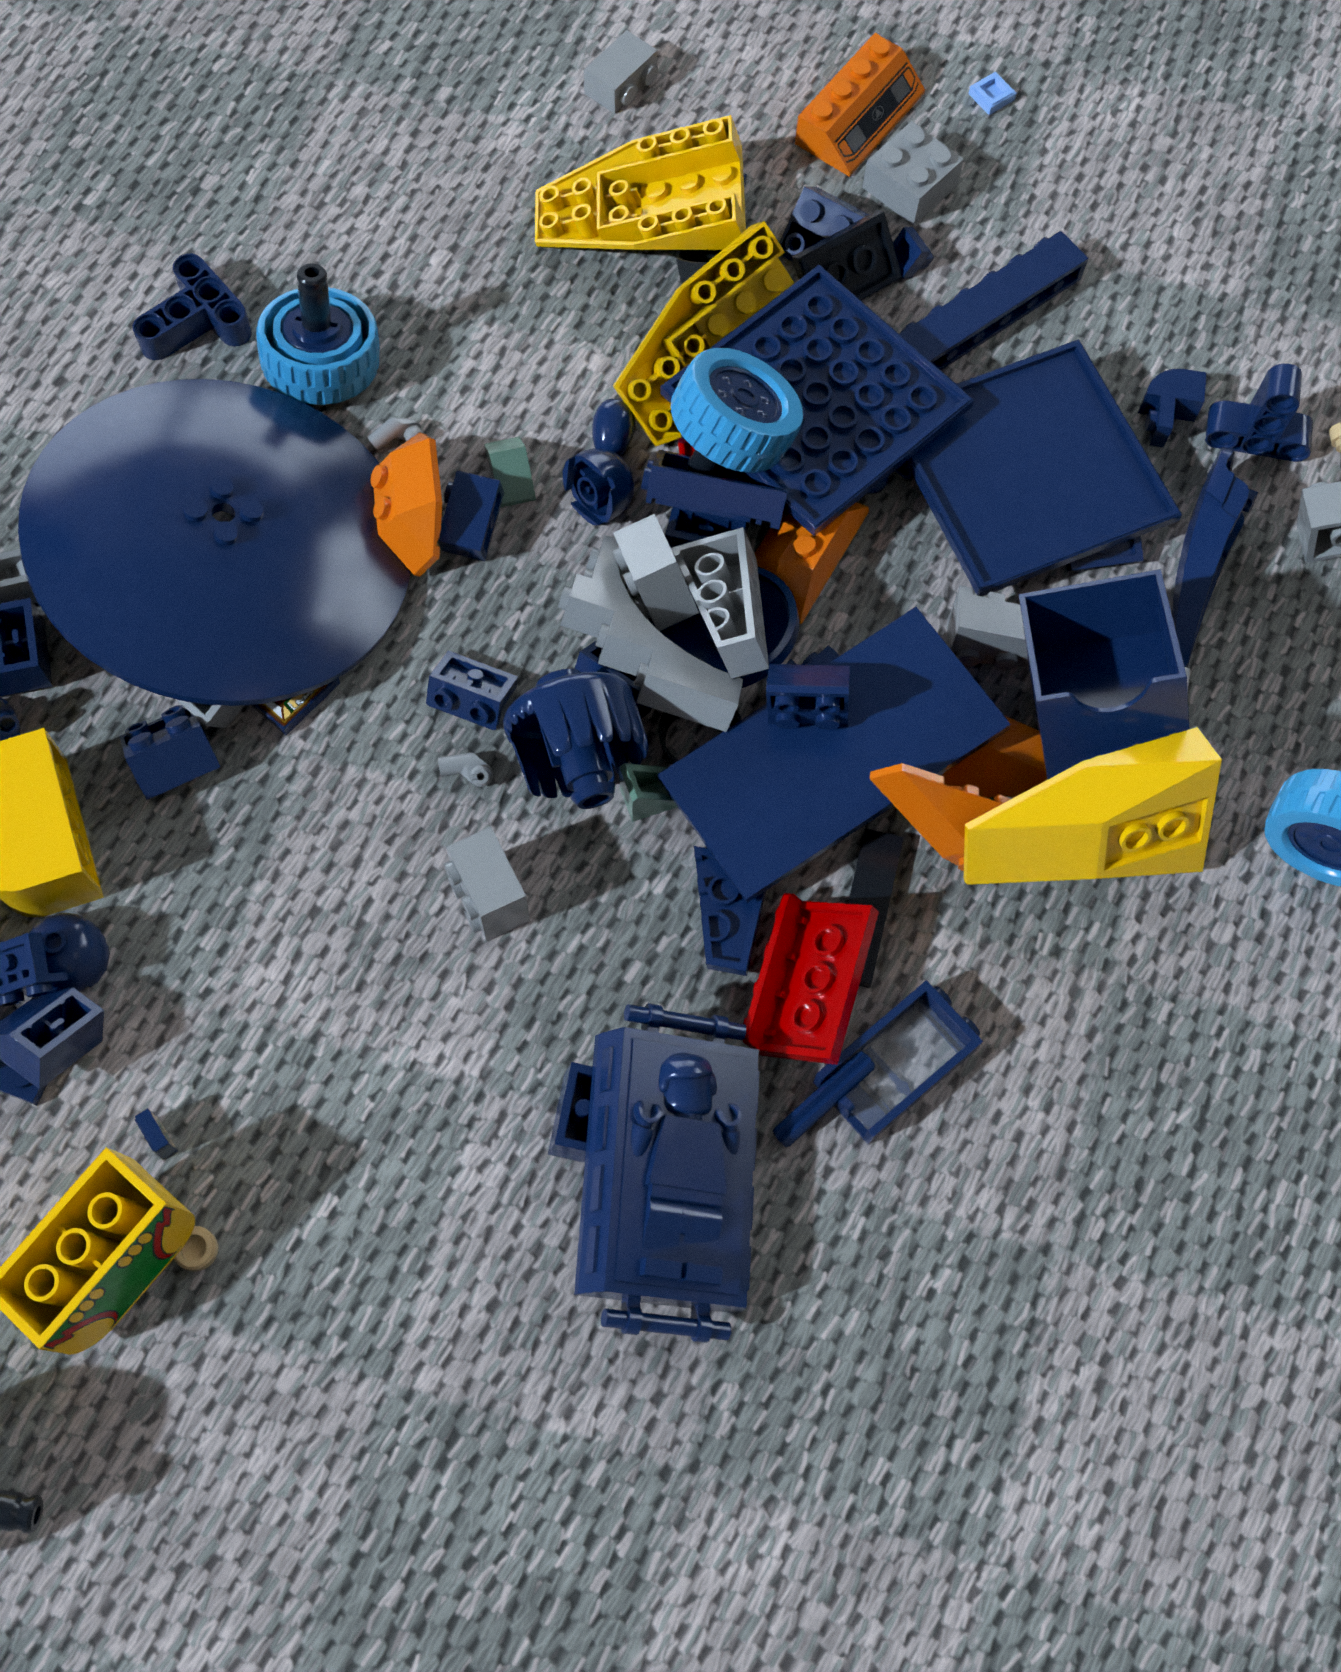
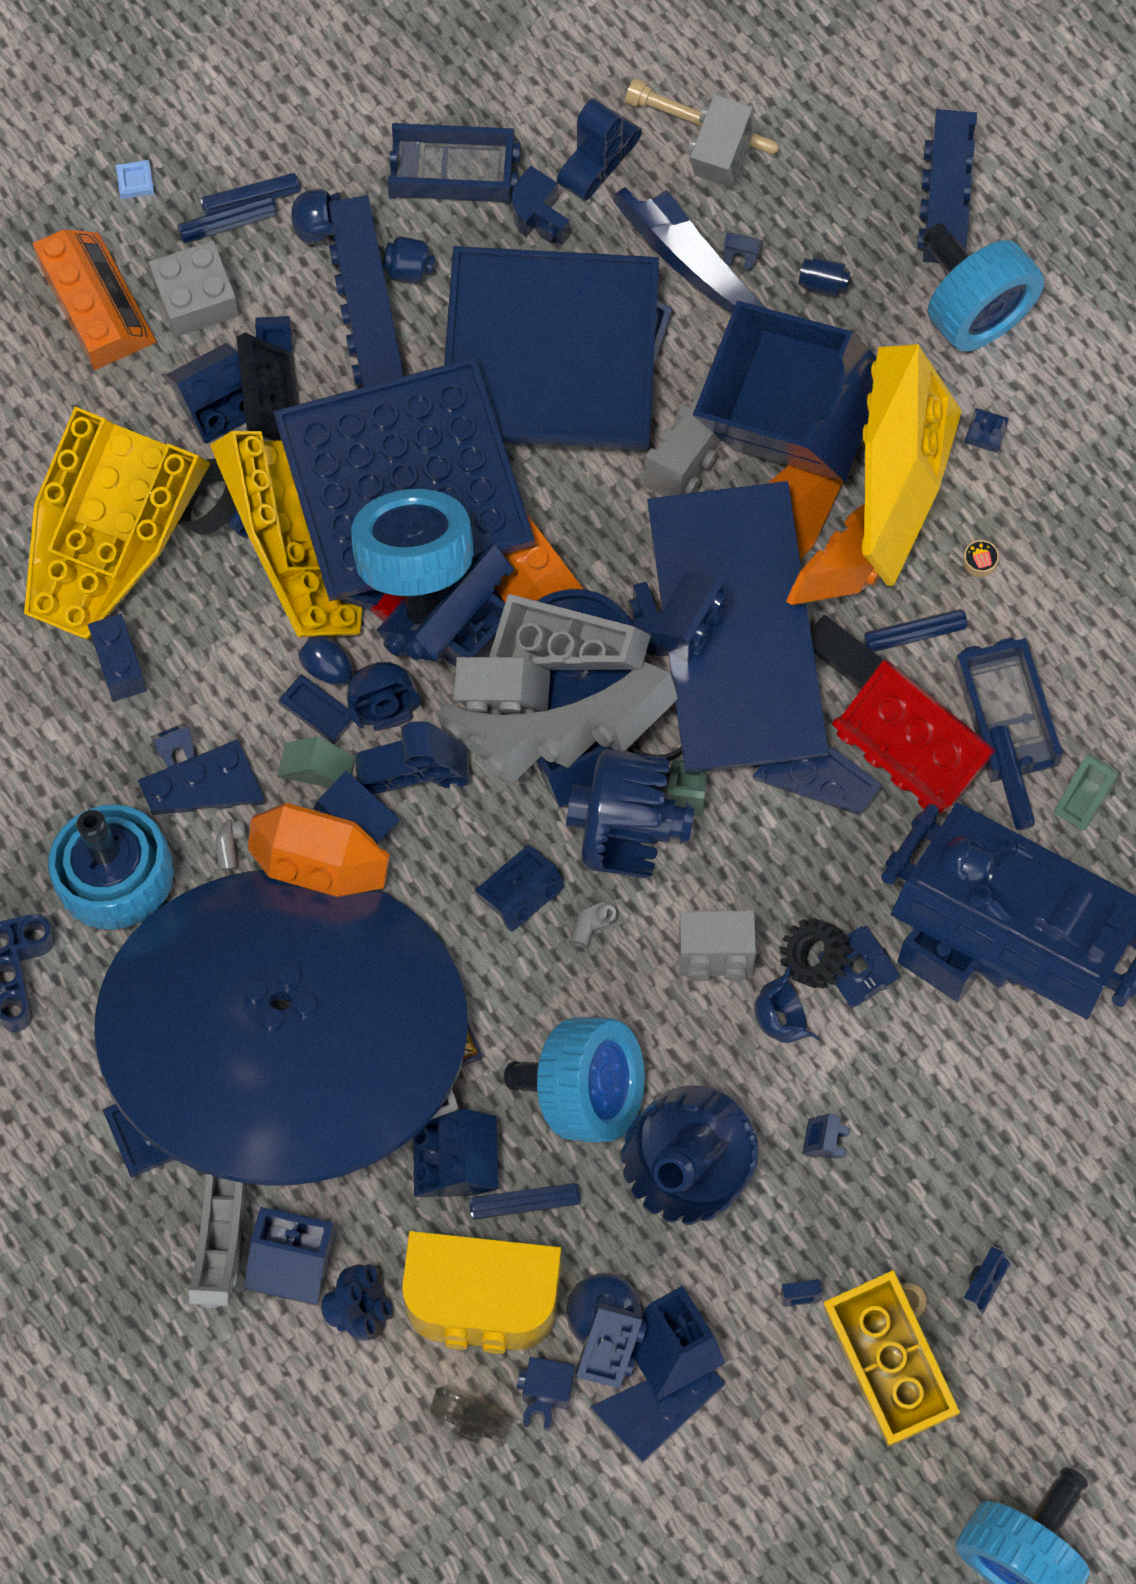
camera: 60 degrees left, 0 degrees up
(152, 833) = (524, 1201): none -> dark blue axle
(240, 952) = (690, 1154): none -> dark blue piece
(249, 1316) = (982, 1279): none -> dark blue piece
(278, 824) = (585, 1079): none -> dark azure wheel
(334, 1081) = (823, 1135): none -> dark blue tile
(438, 970) = (781, 997): none -> dark blue hair
(449, 392) = (205, 781): none -> dark blue wing
(474, 347) = (171, 739): none -> dark blue tile
(518, 1002) = (831, 961): none -> black tyre
(525, 268) = (117, 657): none -> dark blue brick
(546, 1058) = (873, 979): none -> dark blue piece
(548, 537) = (419, 757): none -> dark blue beam
(565, 441) = (316, 709): none -> dark blue tile
(846, 1184) = (1086, 792): none -> sand green slope
(937, 934) = (916, 630): none -> dark blue axle
(999, 174) = (227, 219): none -> dark blue axle
(1034, 180) = (274, 187): none -> dark blue axle
(1040, 222) = (311, 214): none -> dark blue hair
(1048, 322) = (408, 260): none -> dark blue head
(1053, 963) = (981, 558): none -> tile
(1170, 315) = (453, 162): none -> door
(1198, 906) = (986, 430): none -> dark blue tile
(1251, 595) = (746, 245): none -> dark blue tile
(1264, 679) = (824, 276): none -> dark blue brick

